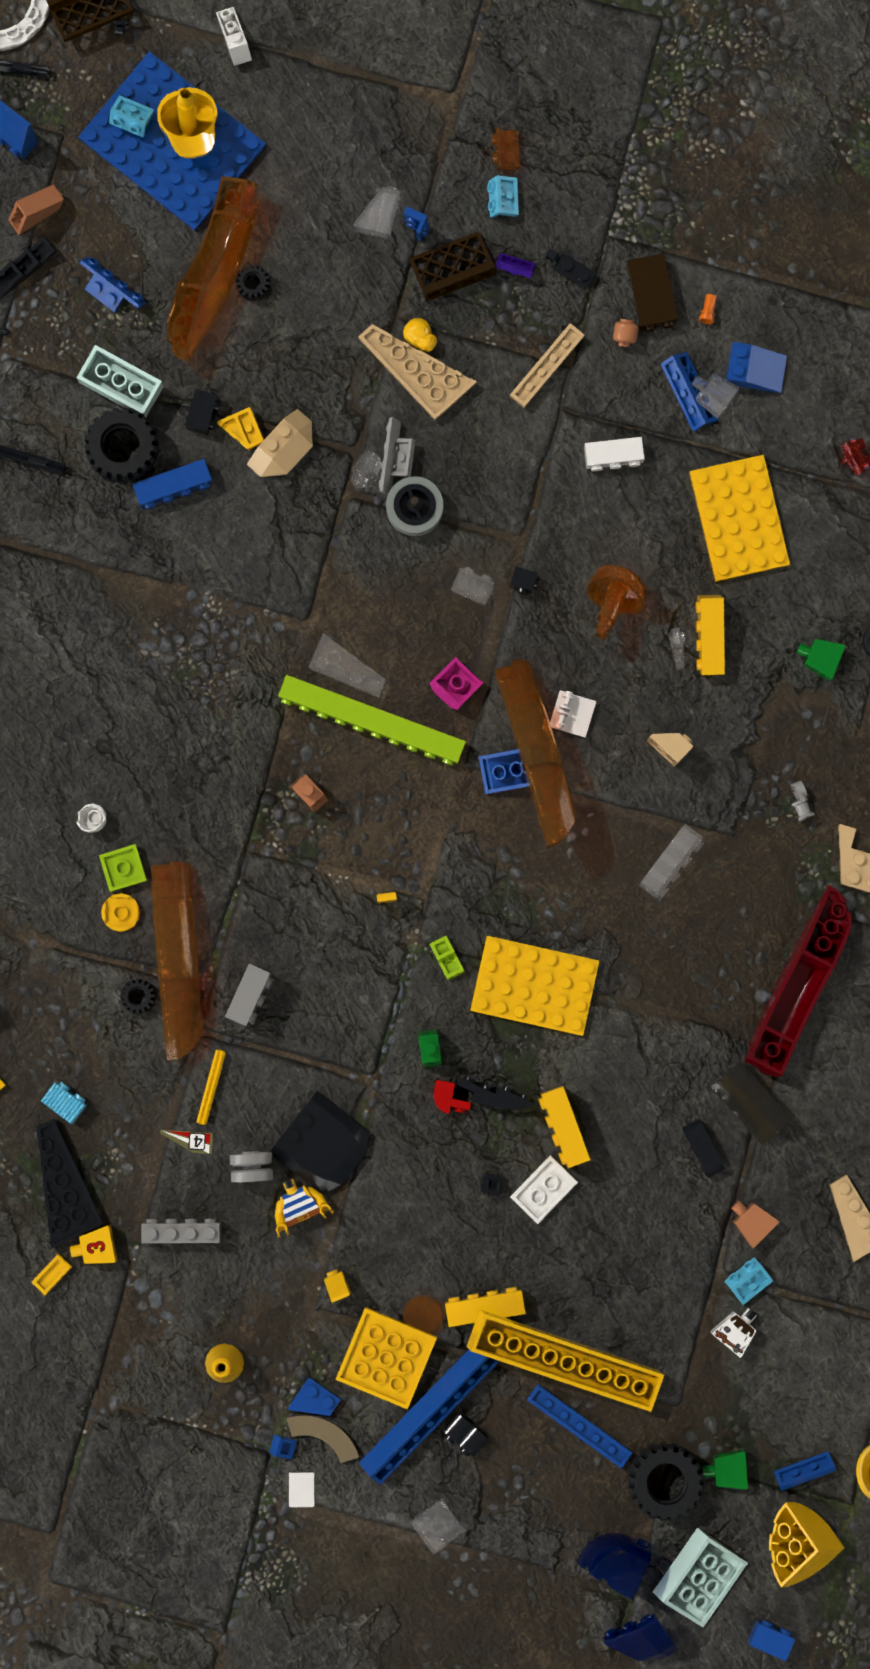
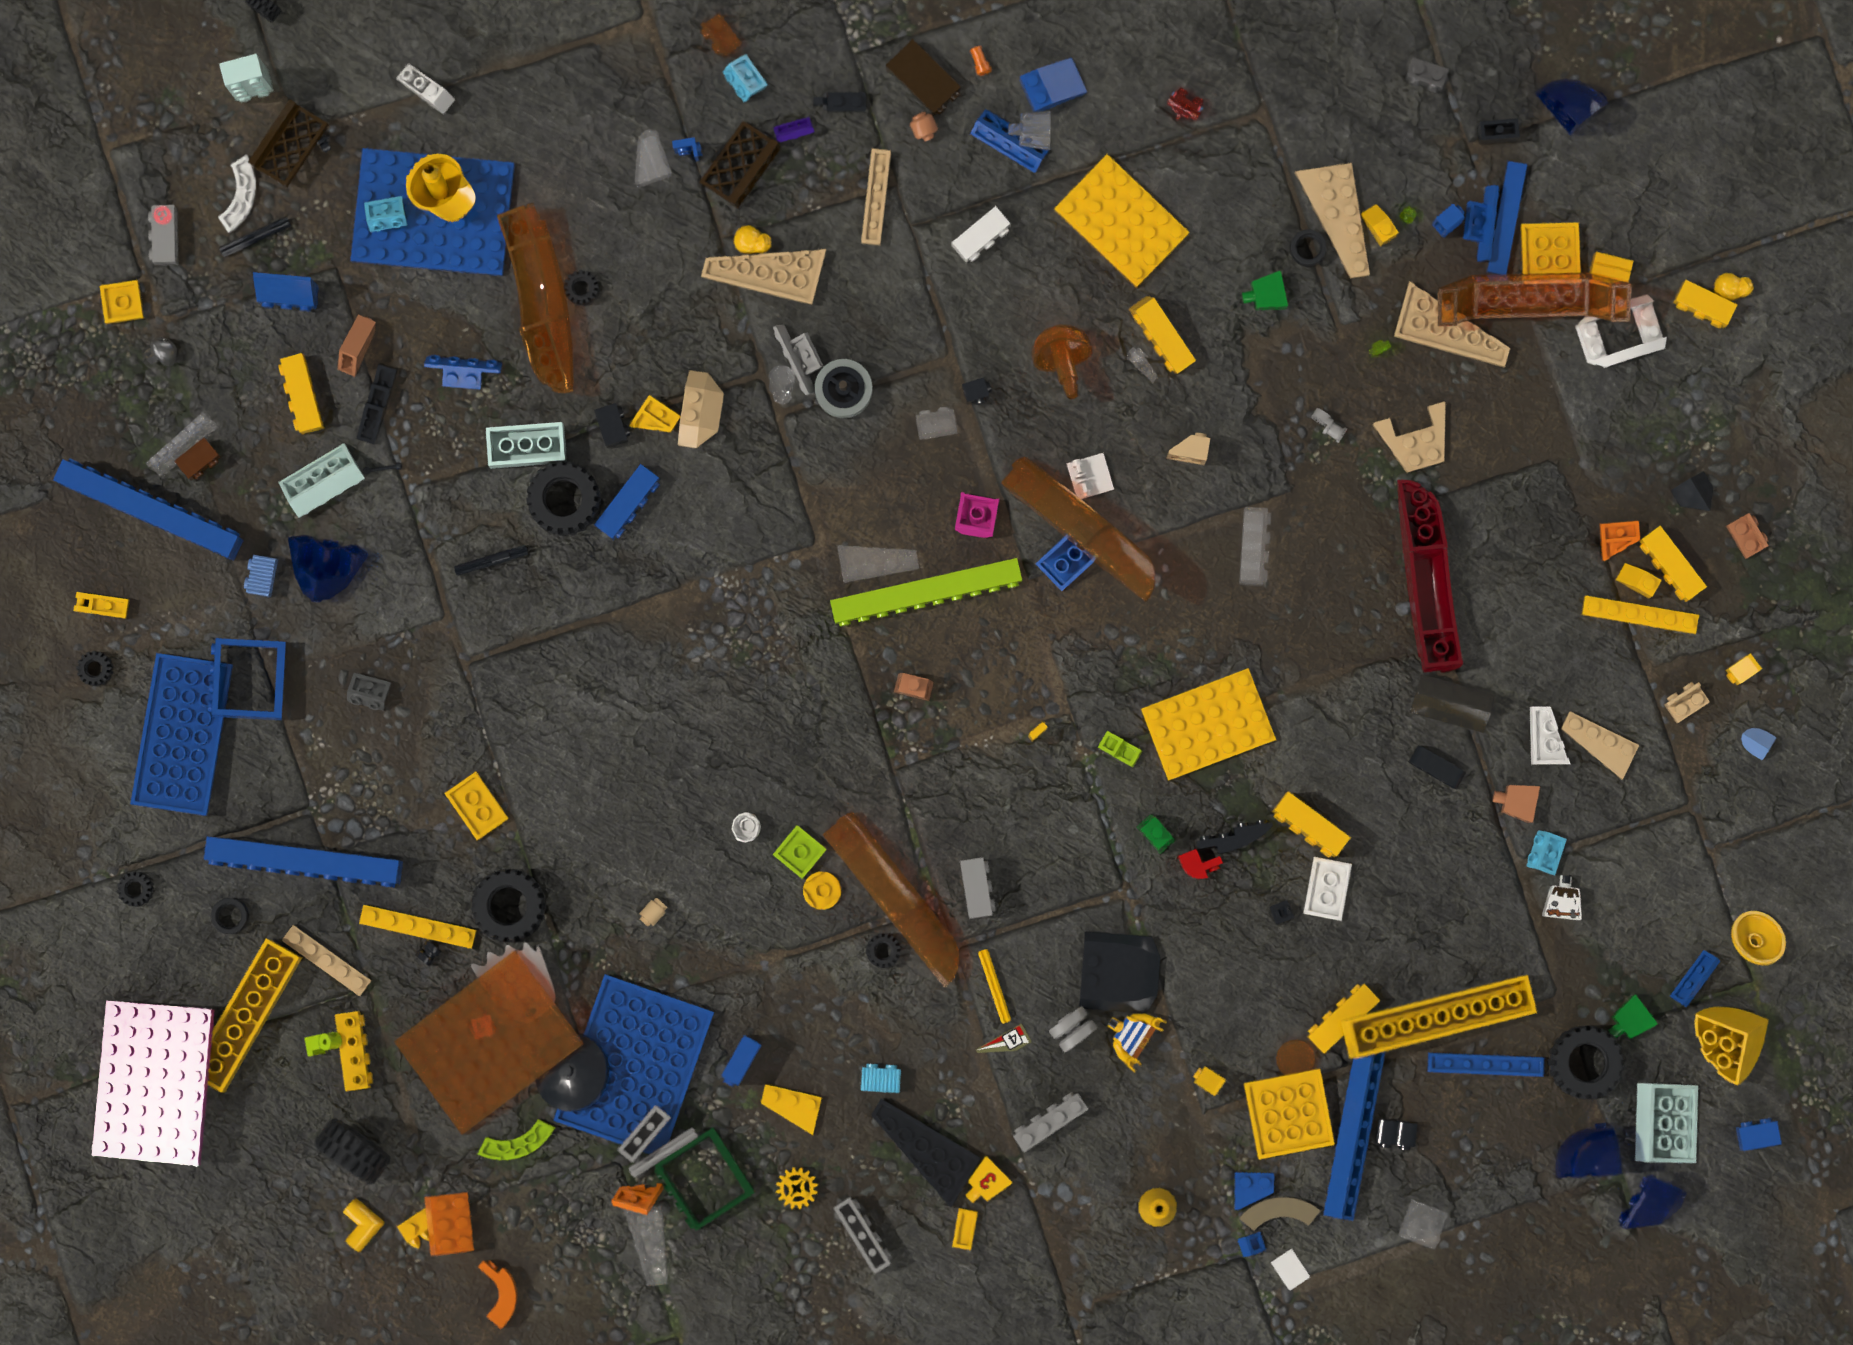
camera: 30 degrees left, 0 degrees up
(810, 1184) = (1545, 739): none -> white wing

